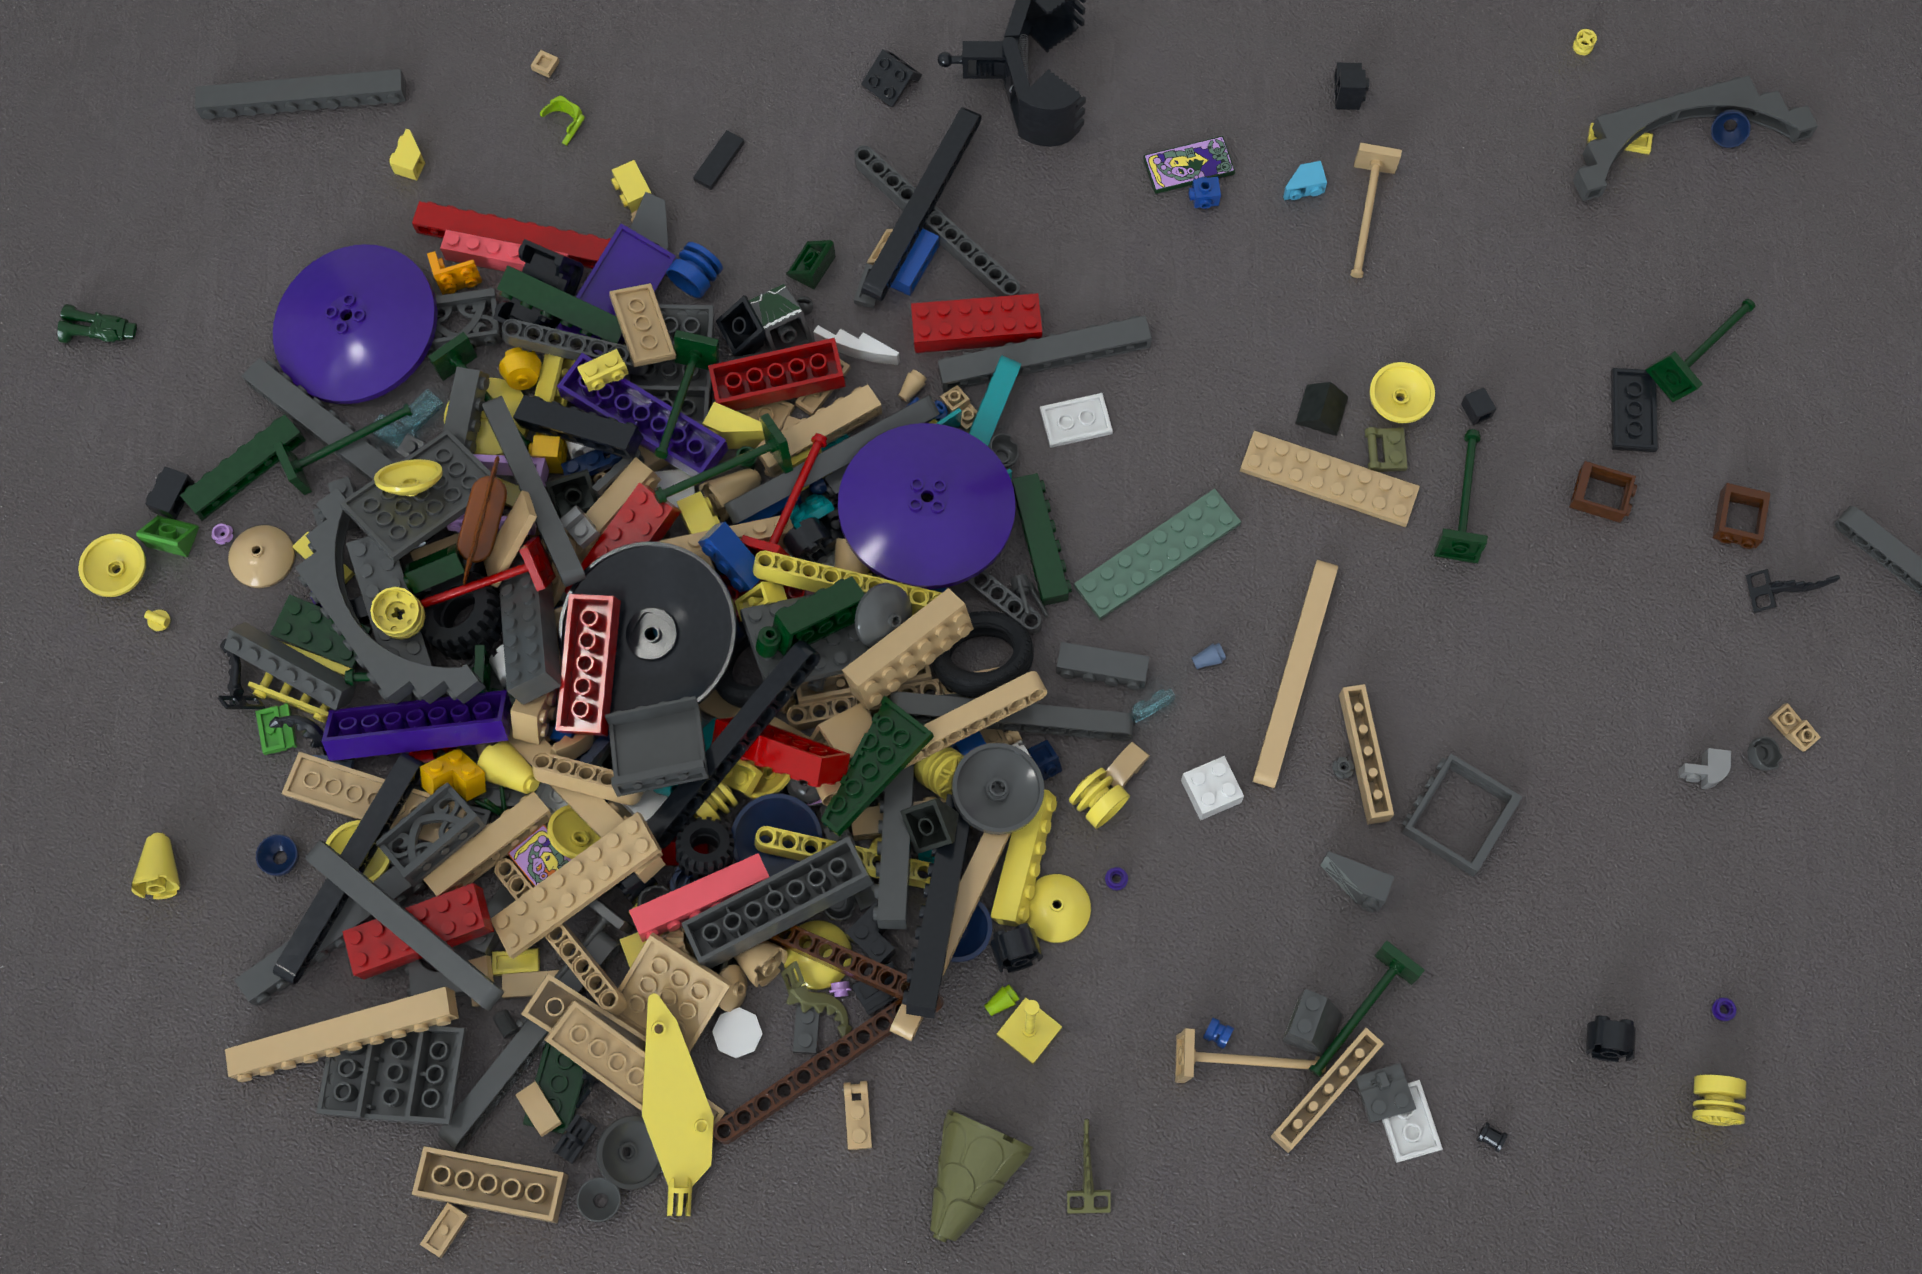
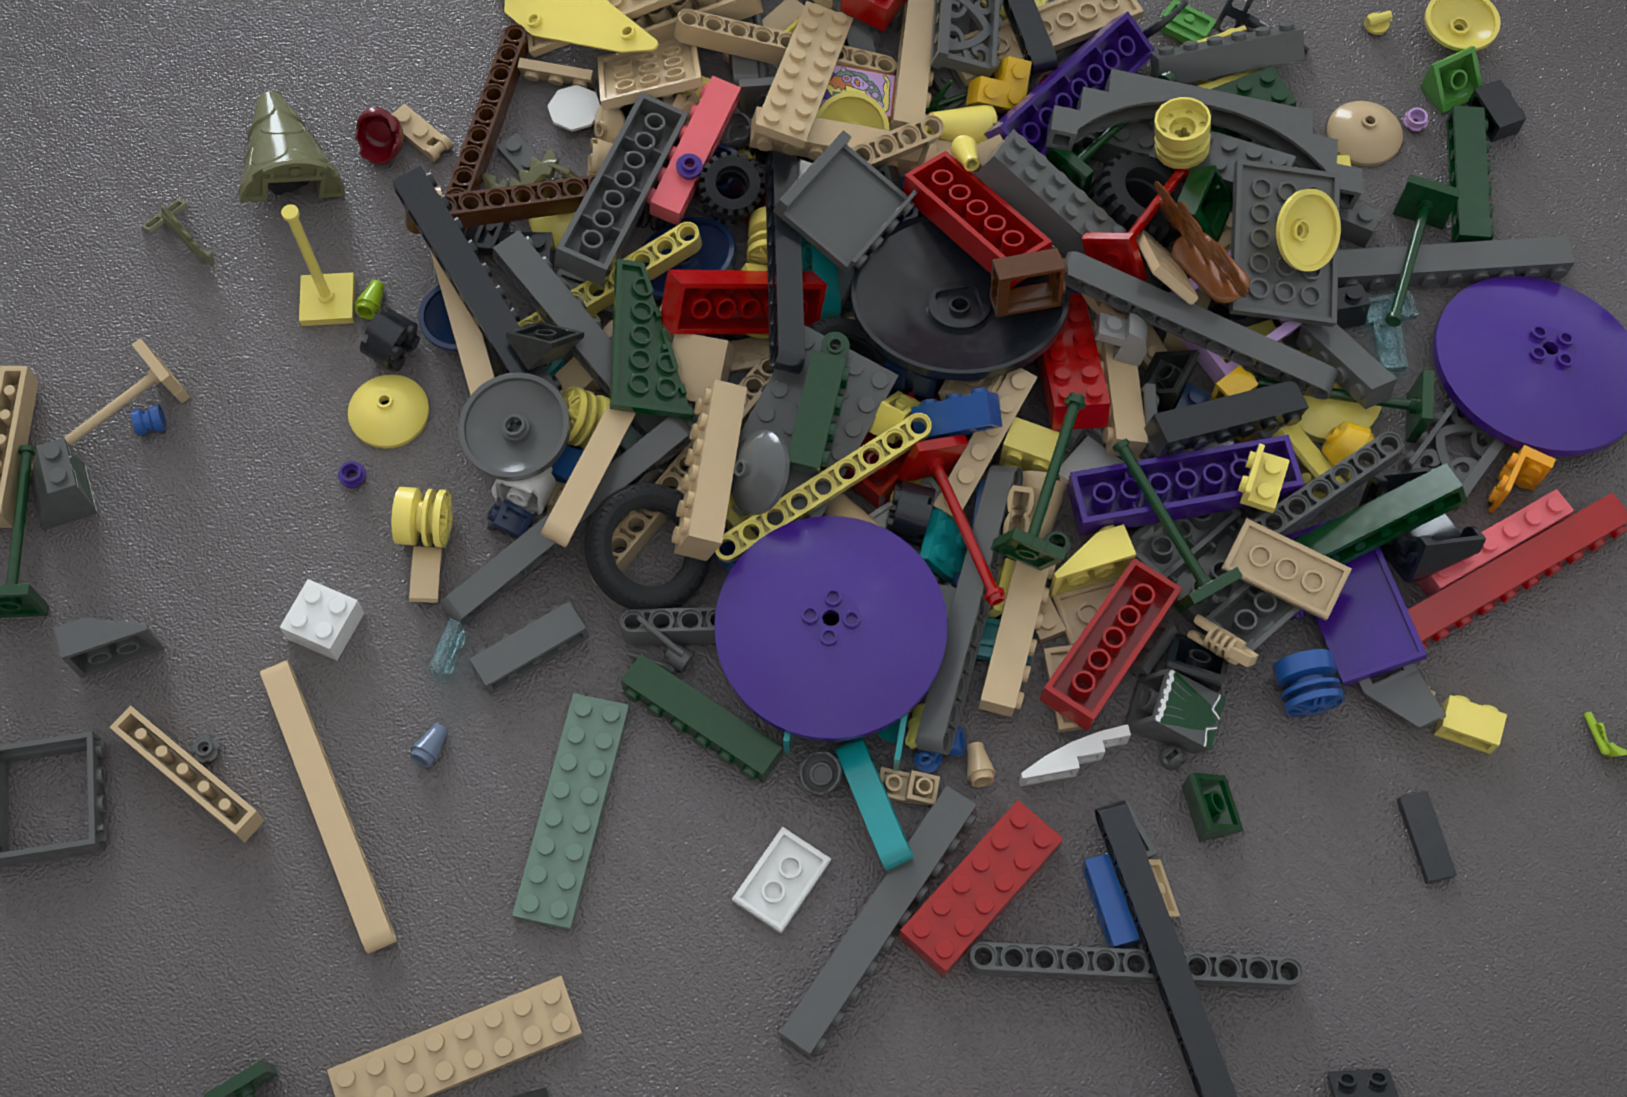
camera: 135 degrees right, 5 degrees down
(548, 710) = (965, 151): none -> light yellow cone
(612, 580) = (1032, 297): none -> reddish brown window
(720, 319) = (1222, 643): none -> tan hinge
(723, 1074) = (556, 73): none -> tan plate
(726, 880) = (689, 172): none -> dark purple plate
(751, 477) = (1021, 507): none -> tan brick
(891, 1126) = (379, 135): none -> dark red piece
(1023, 866) = (442, 406): light yellow brick -> none

